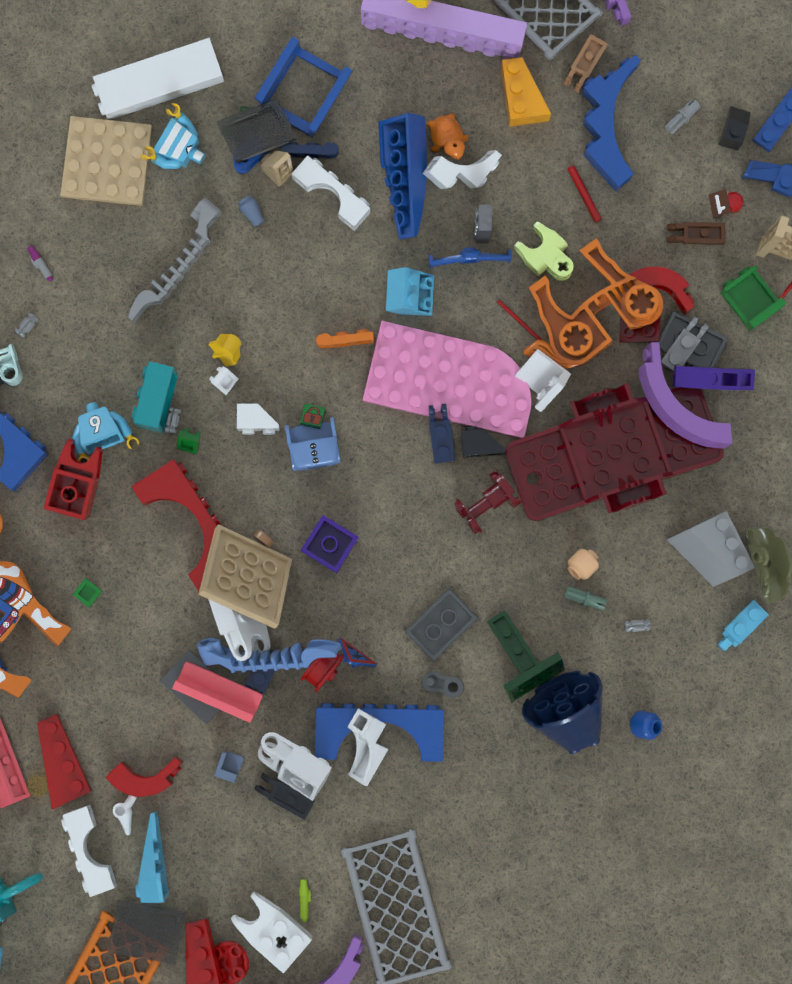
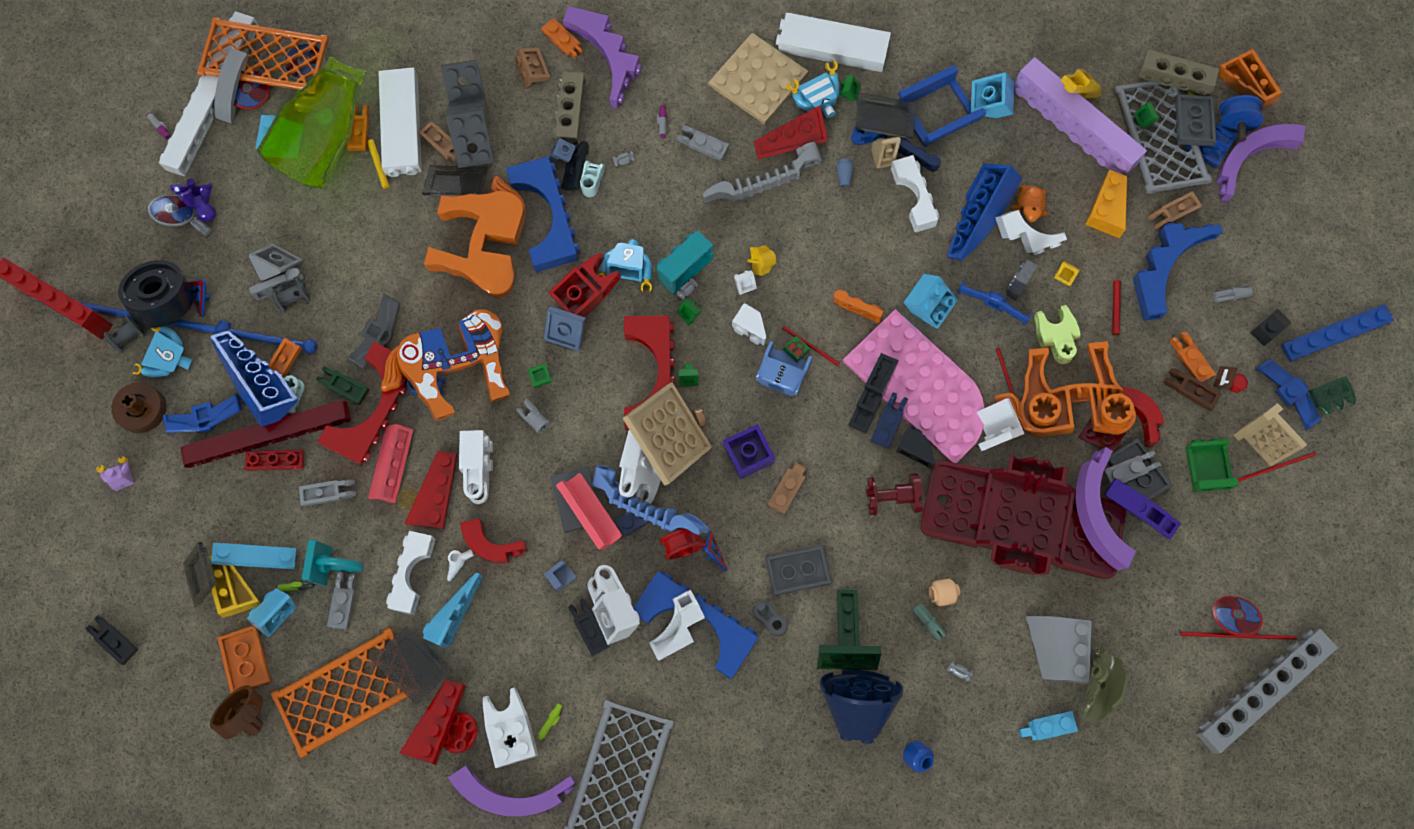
camera: 40 degrees right, 10 degrees down
(43, 917) = (342, 602): none -> light grey hinge
(81, 533) = (564, 328): none -> sand blue tile
(83, 714) = (475, 463): none -> white brick
(96, 261) = (704, 143): none -> light grey hinge
(110, 635) = (534, 418): none -> light grey hinge
(178, 202) = (792, 135): none -> red wing
(205, 119) = (850, 88): none -> green tile
(228, 506) = (688, 376): none -> green tile
(326, 404) = (812, 346): none -> red axle
(347, 45) = (994, 95): none -> medium azure slope
(385, 554) = (787, 488): none -> medium nougat hinge
(410, 416) = (873, 393): none -> black slope
(520, 186) = (1066, 273): none -> yellow slope
(680, 202) = (1192, 358): none -> orange hinge

